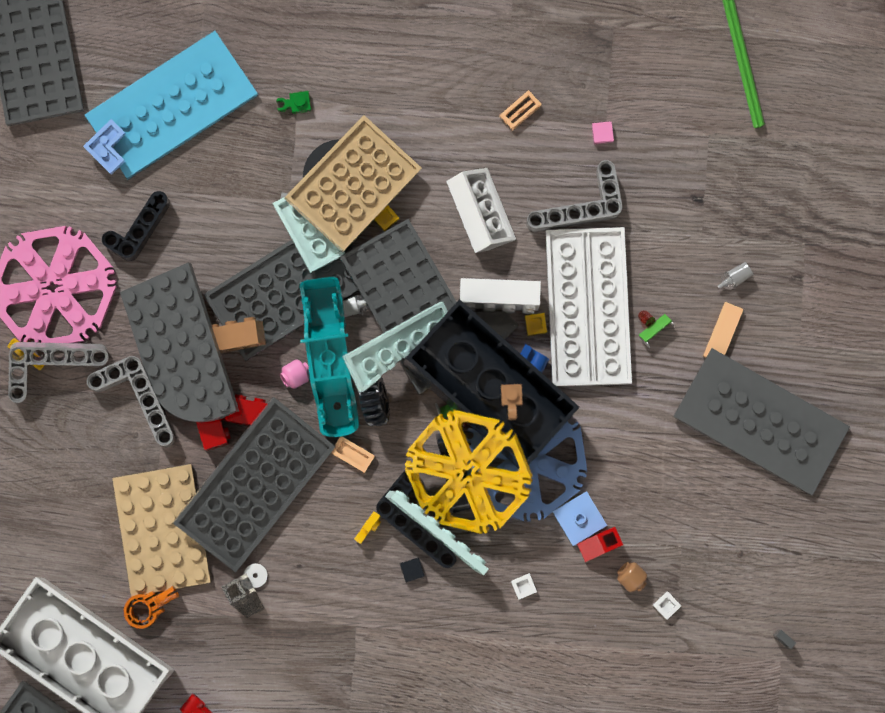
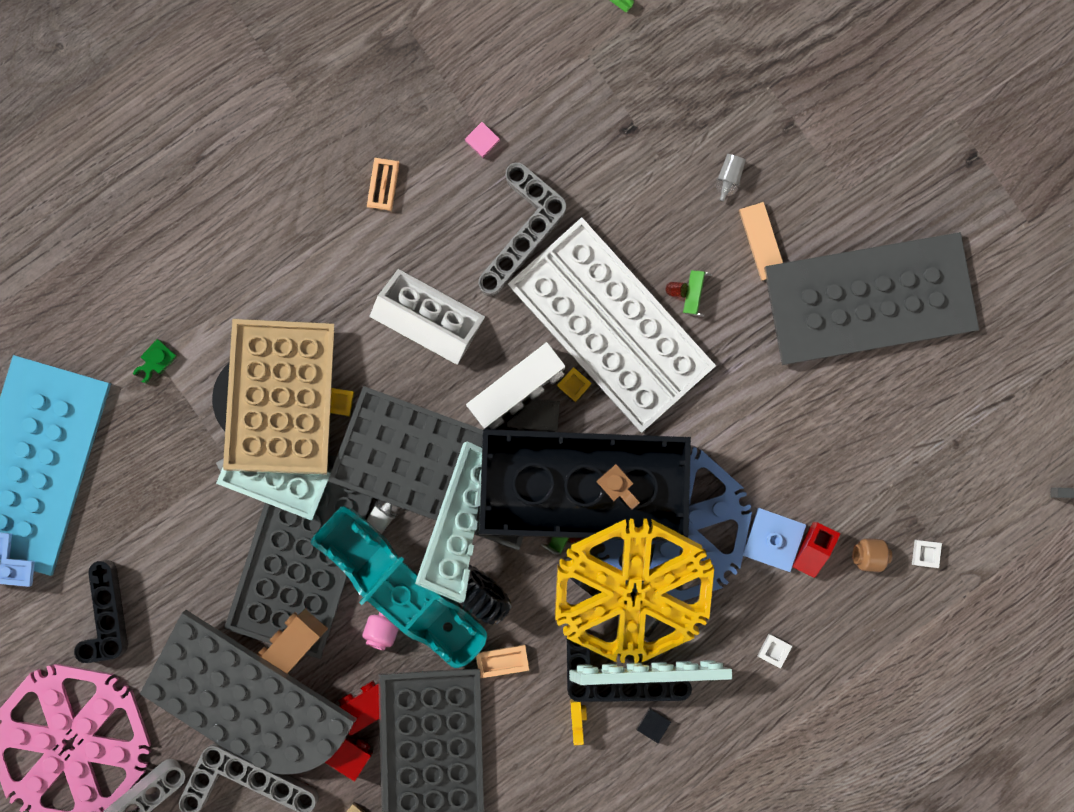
camera: 35 degrees left, 5 degrees up
(535, 358) = (601, 421): blue leg -> none

